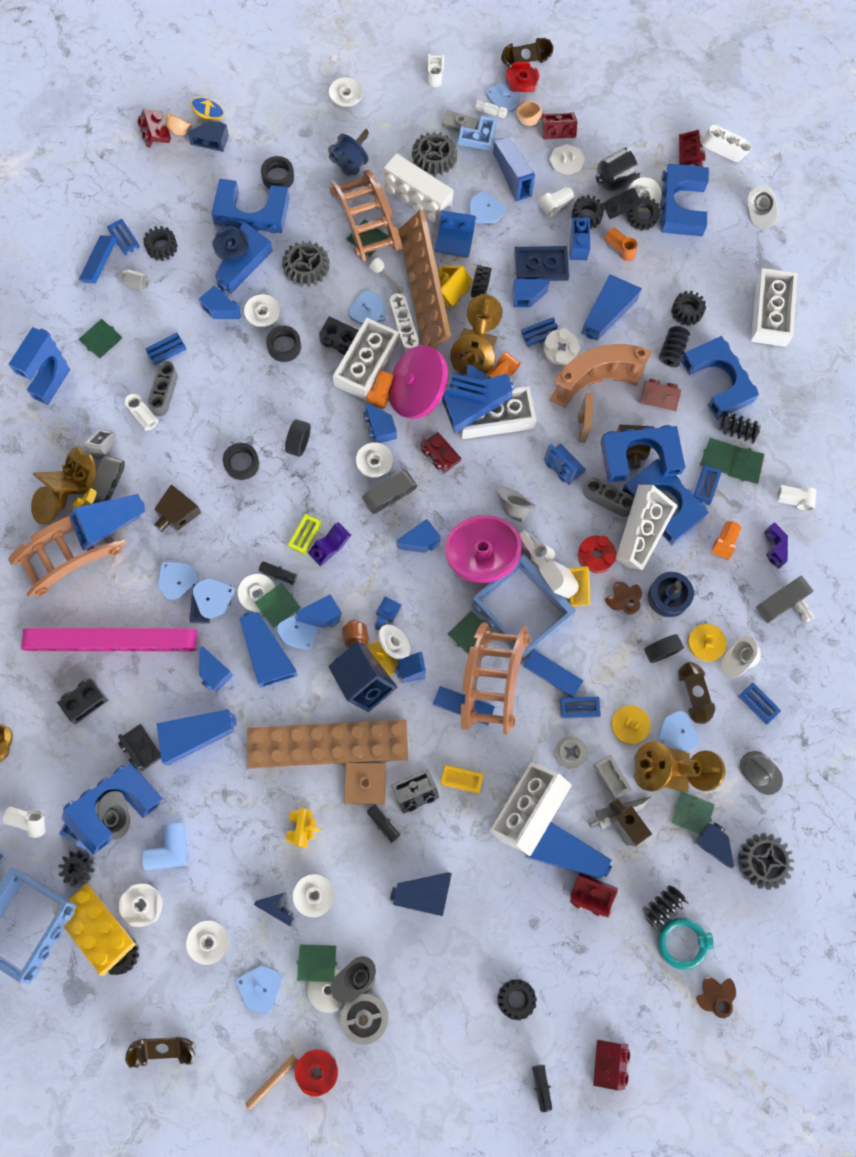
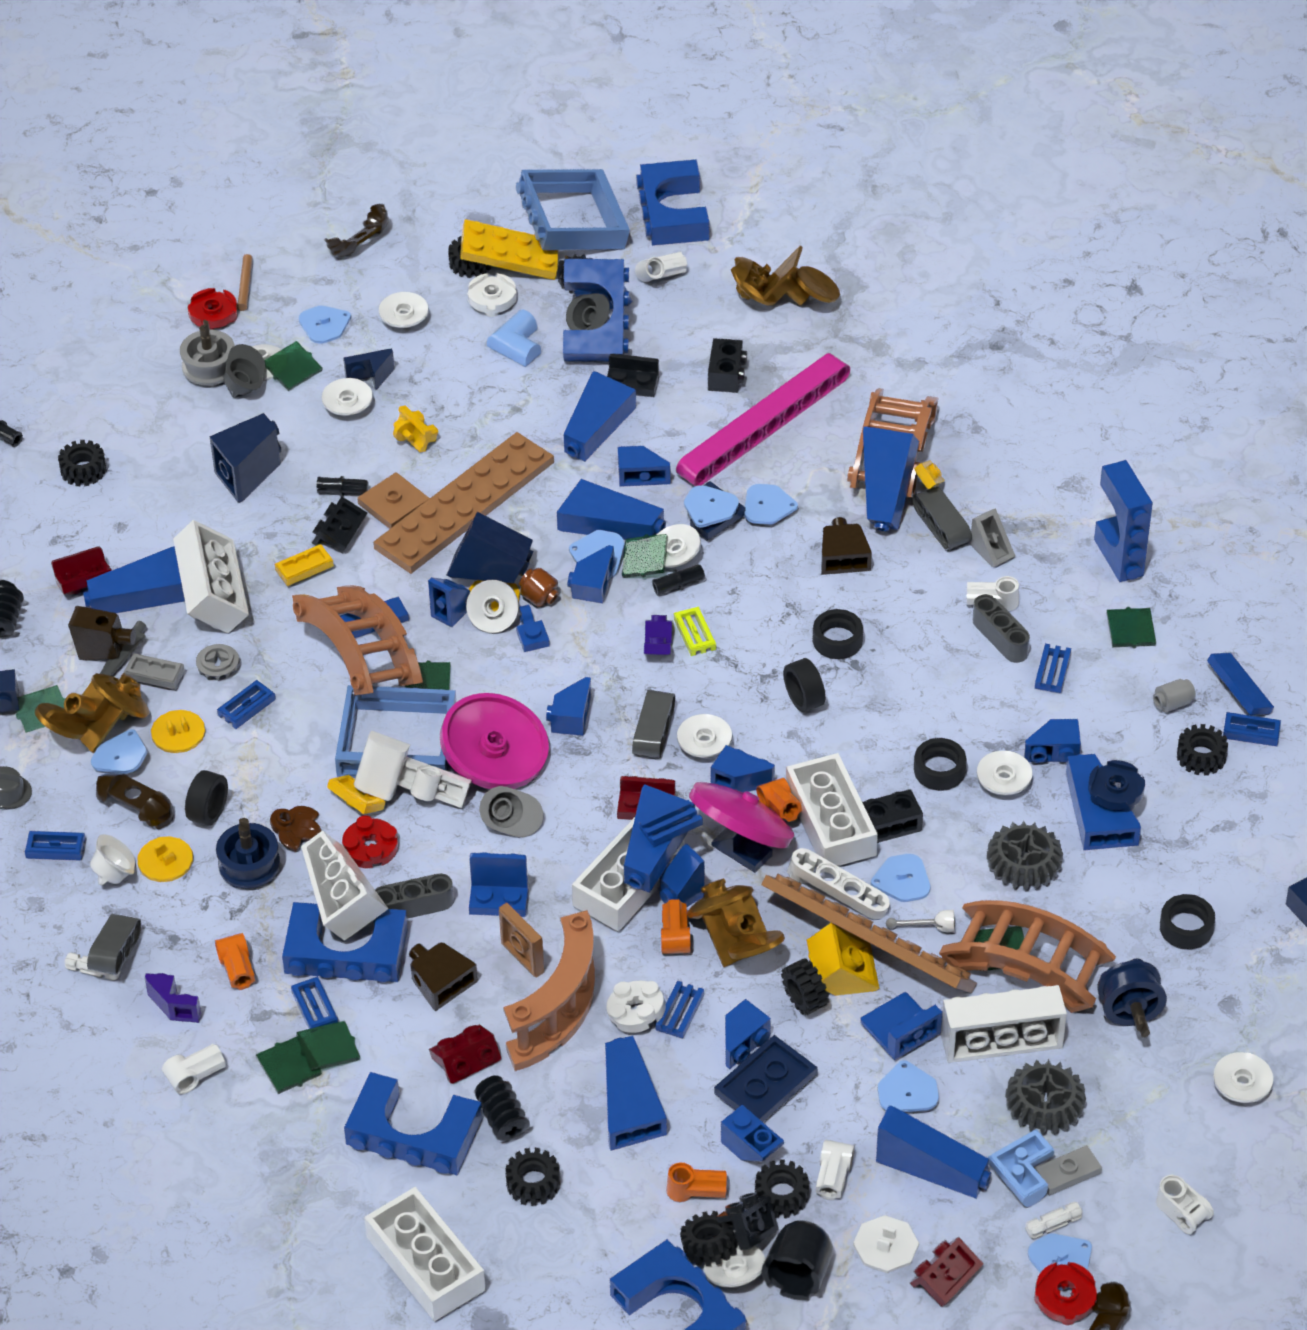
camera: 140 degrees right, 25 degrees down
(76, 478) = (972, 477): pearl gold piece -> none
(269, 218) = (1177, 834): blue arch -> none
(529, 113) = (996, 1245): light nougat hair -> none
(553, 673) = (303, 709): blue tile -> none
(663, 440) = (406, 972): blue arch -> none
(746, 428) = (331, 1082): black piece -> none

